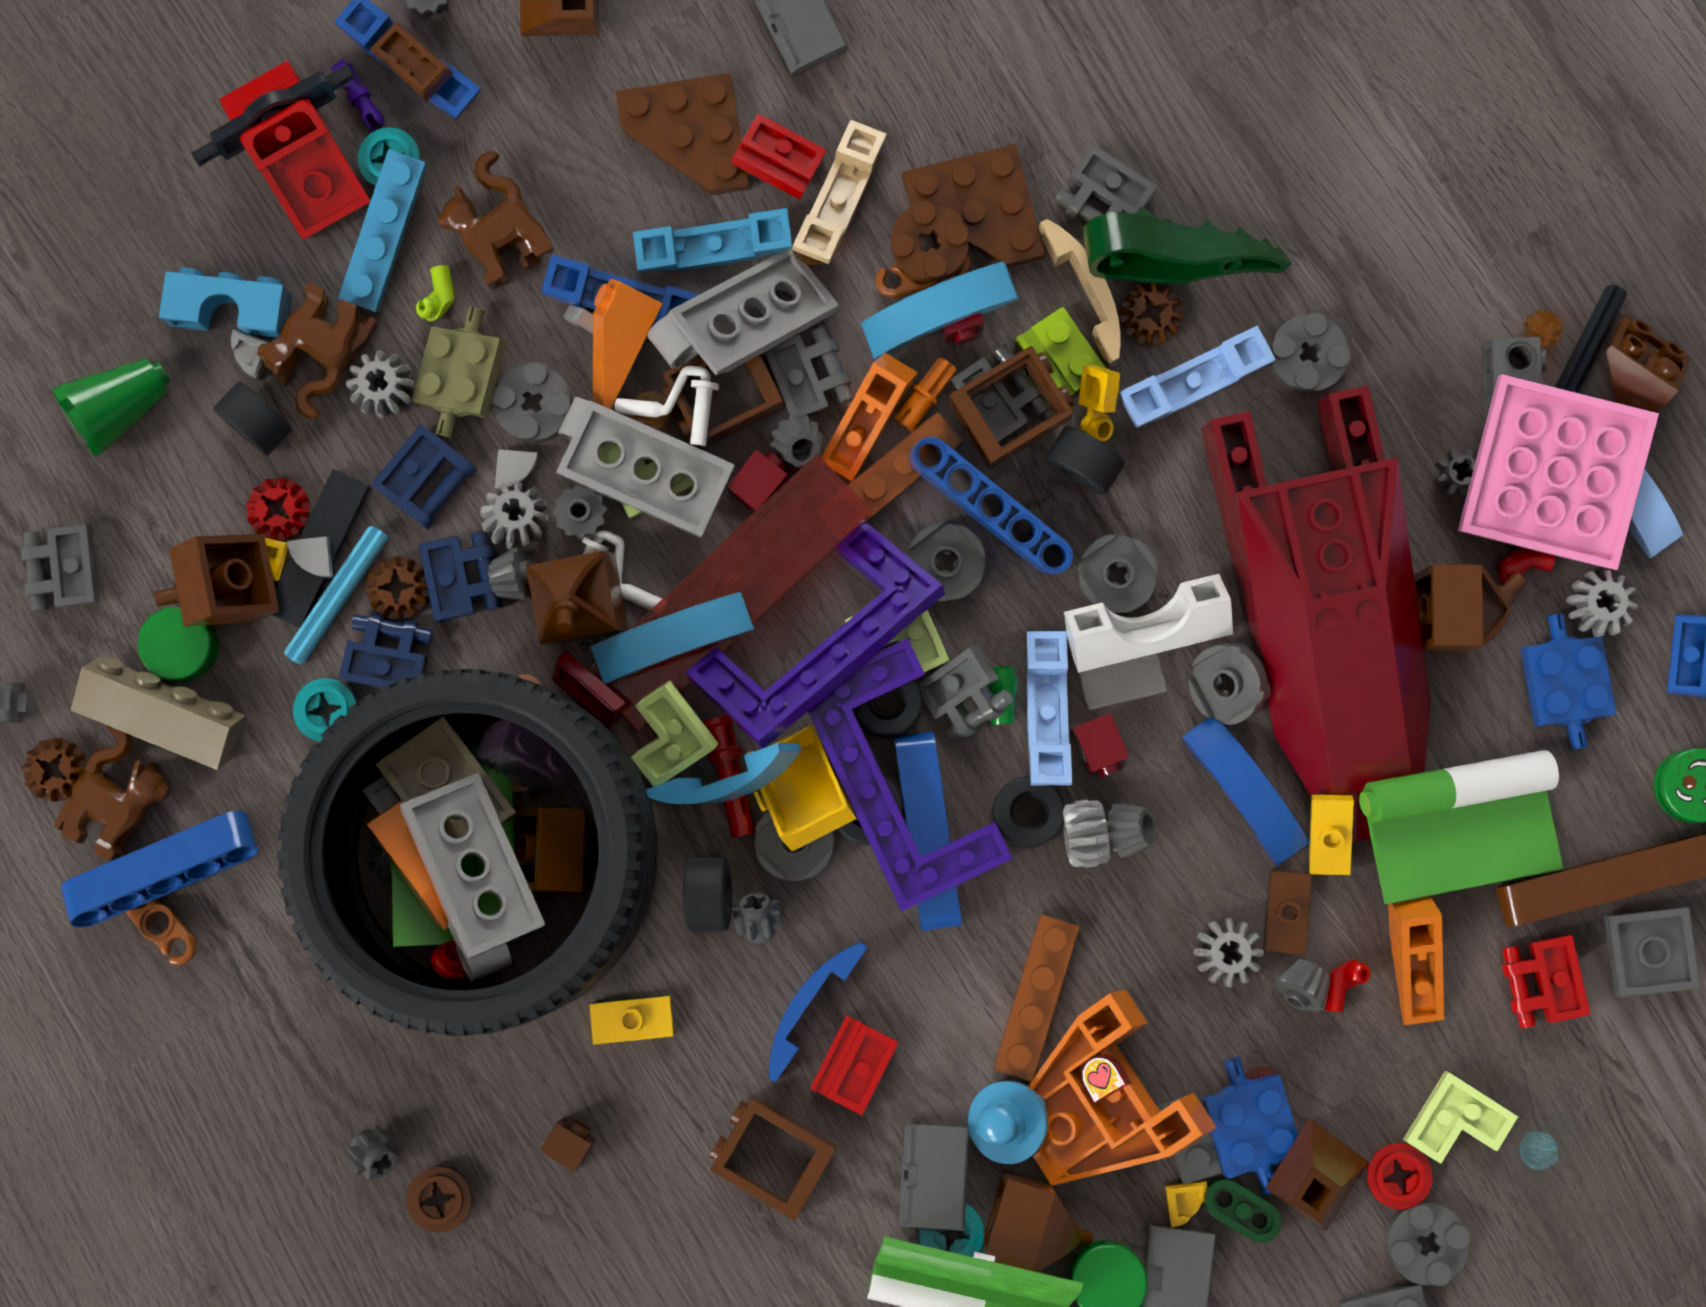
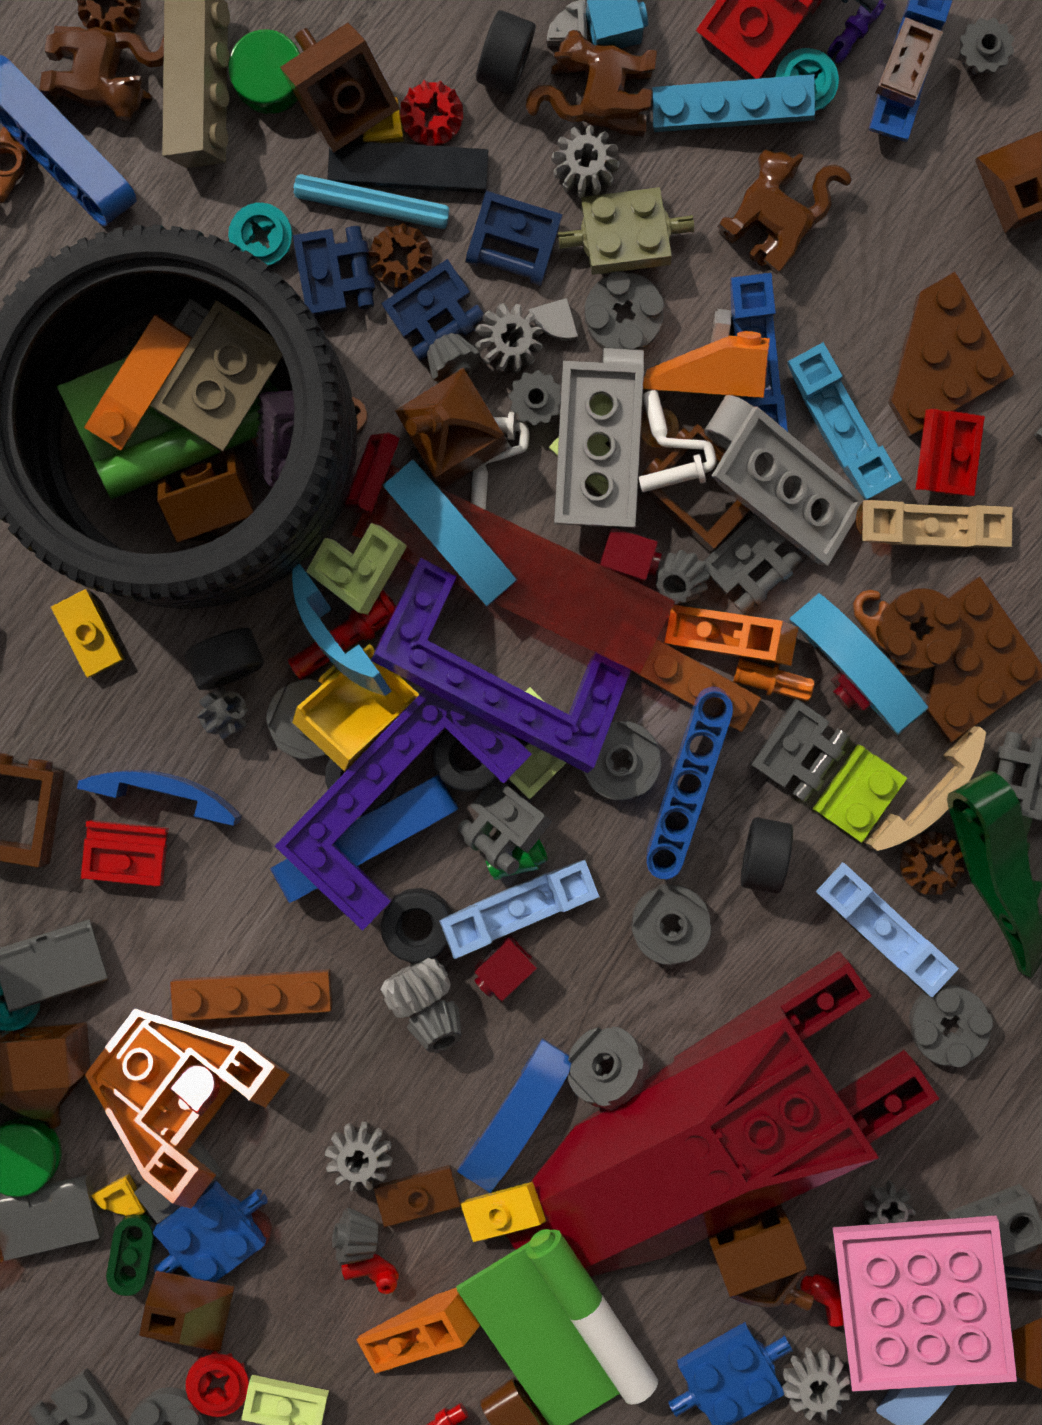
camera: 65 degrees right, 5 degrees up
(313, 555) = (398, 163): light grey tile -> none
(441, 298) = (689, 185): lime arm -> none
(447, 963) = (73, 448): red plate -> none
(477, 936) = (86, 463): light grey hinge -> none
(977, 429) = (836, 780): reddish brown window -> none
(1008, 1122) = (126, 1013): dark azure plate -> none
(1098, 393) = (835, 845): yellow plate -> none
(1123, 682) = (572, 966): clear tile -> none
(1194, 615) = (658, 1010): white arch -> none

